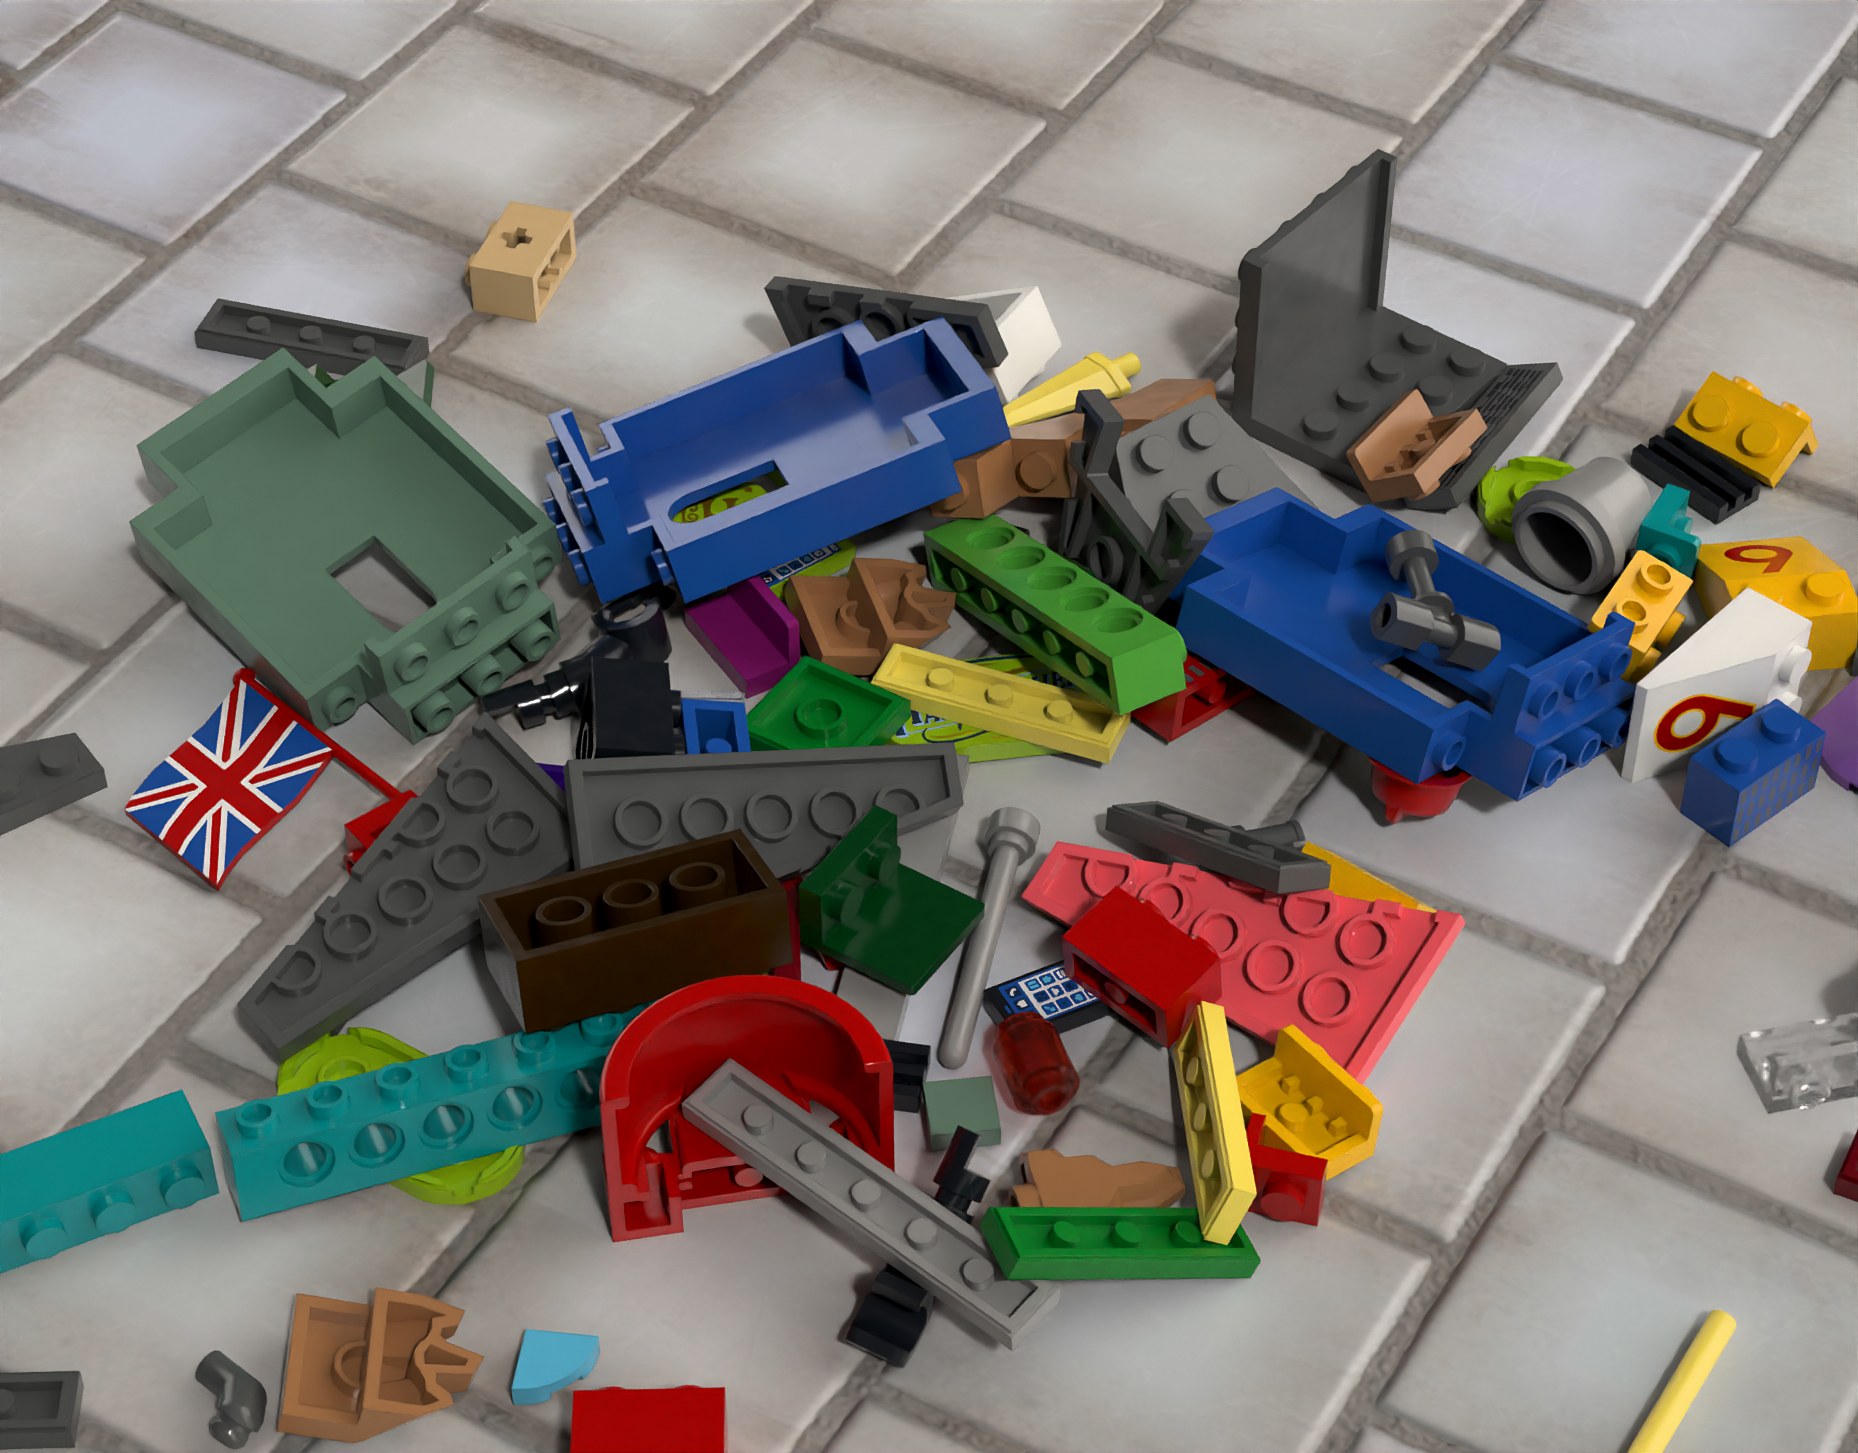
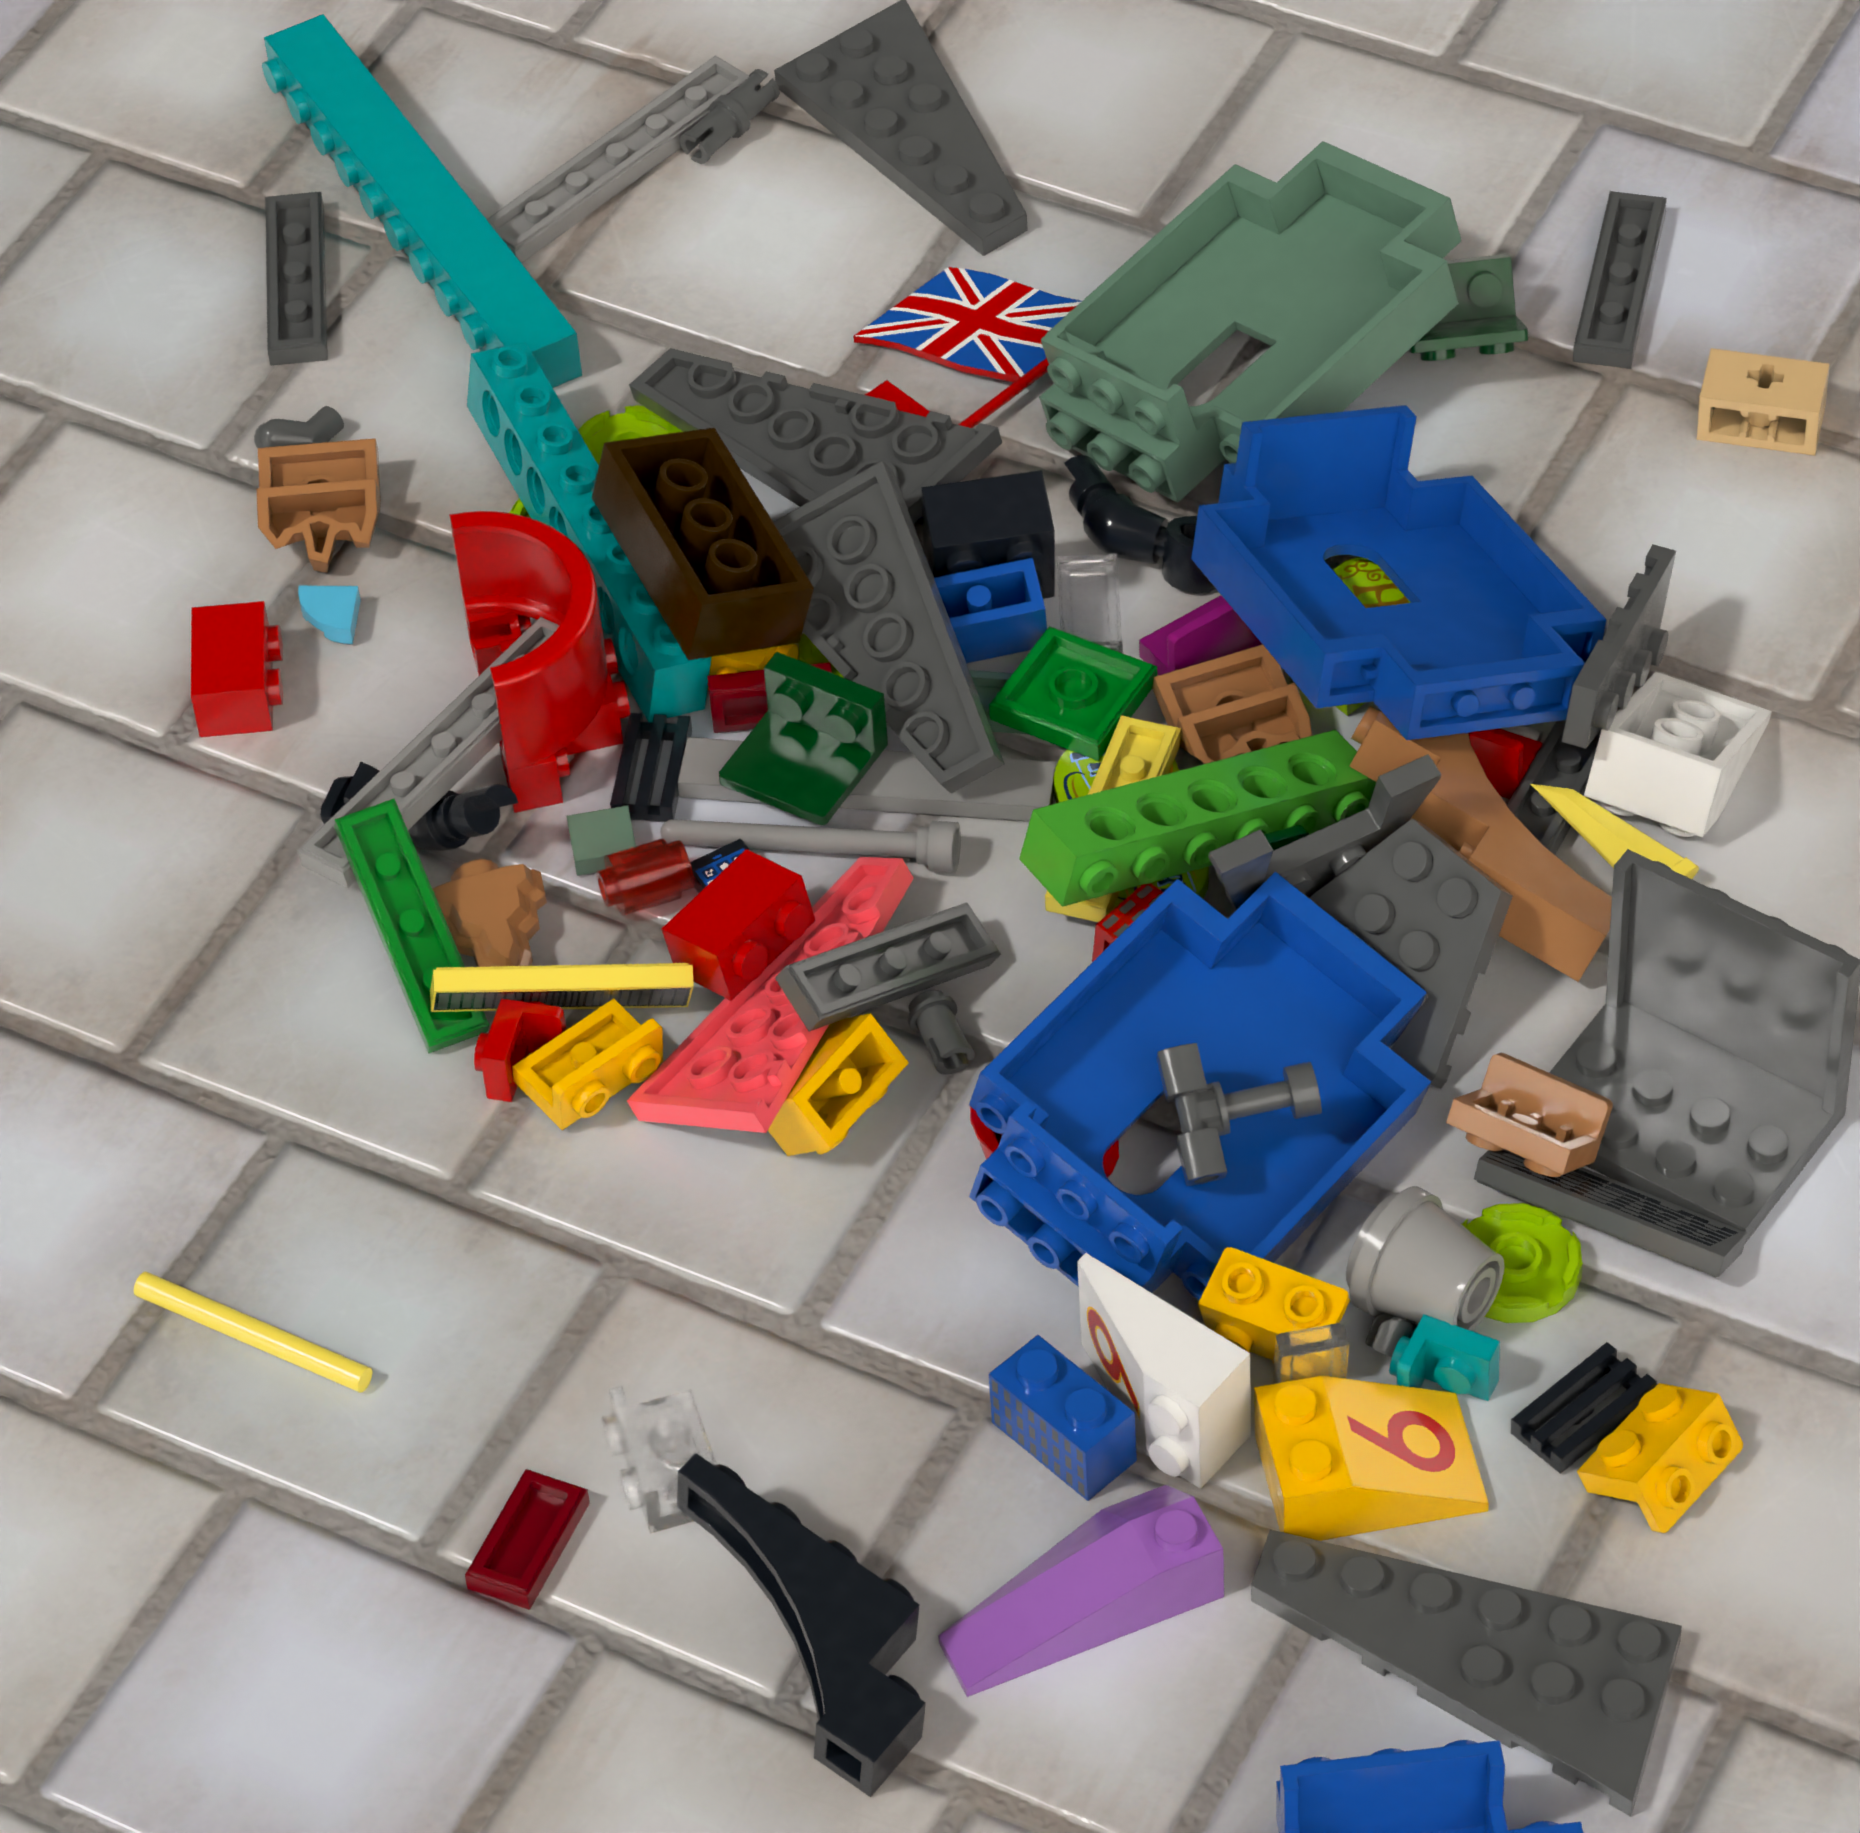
camera: 90 degrees right, 5 degrees up
(1716, 581) = (1311, 1353): none -> clear tile

